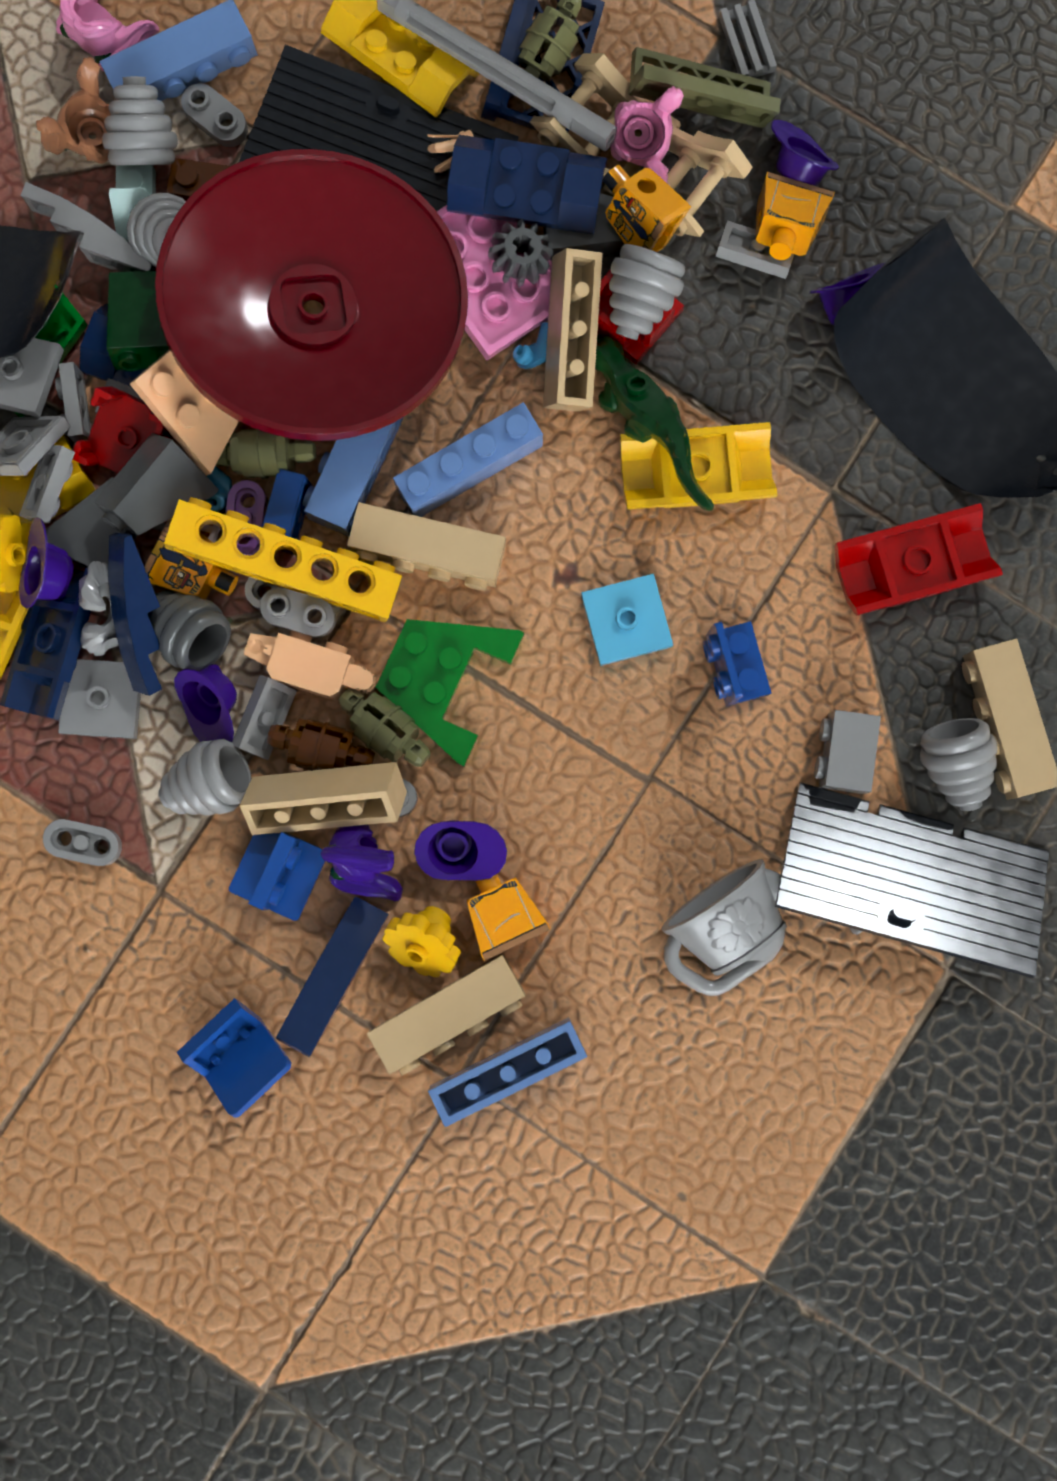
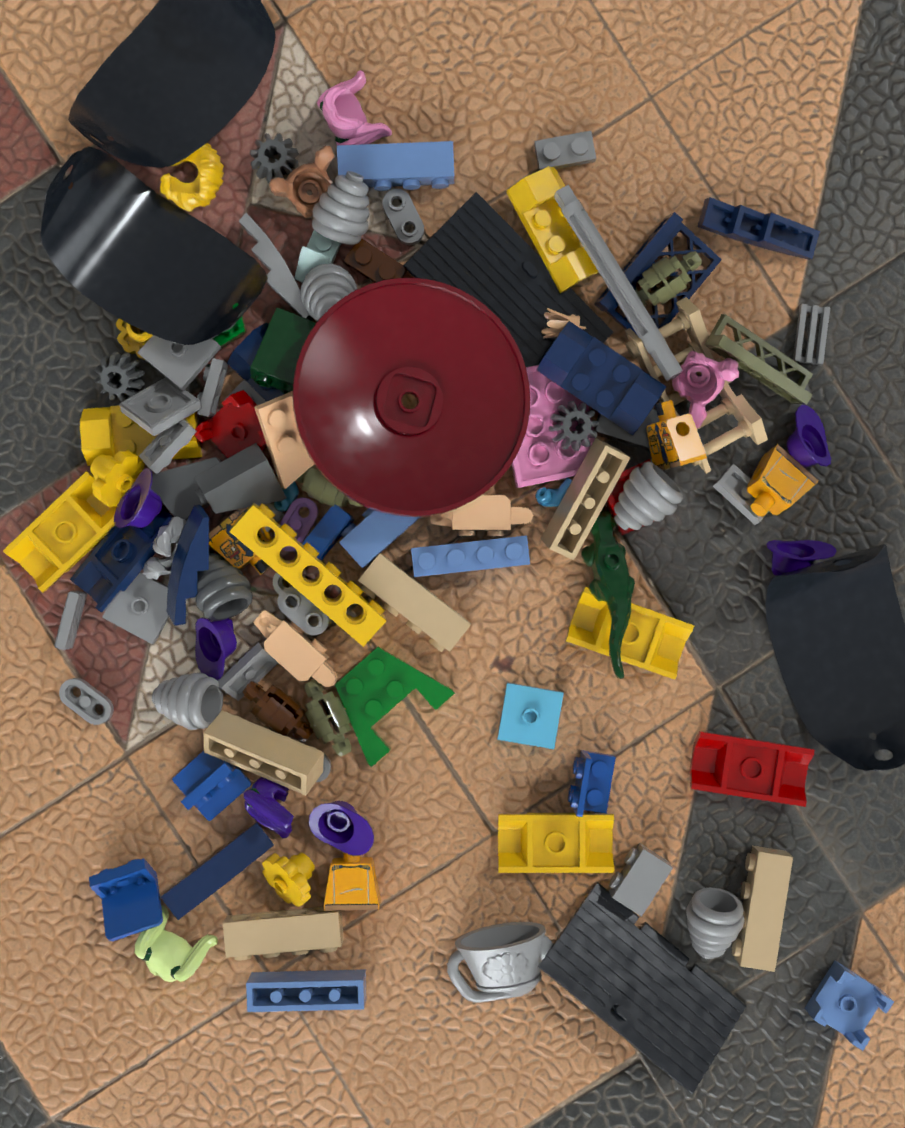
camera: 25 degrees right, 5 degrees up
(21, 752) = (70, 620): none -> light grey tile
(27, 106) = (268, 149): none -> dark grey gear
(318, 1105) = (170, 954): none -> yellowish green hair
(459, 408) = (484, 513): none -> light nougat hinge
(726, 754) = (555, 843): none -> yellow piece

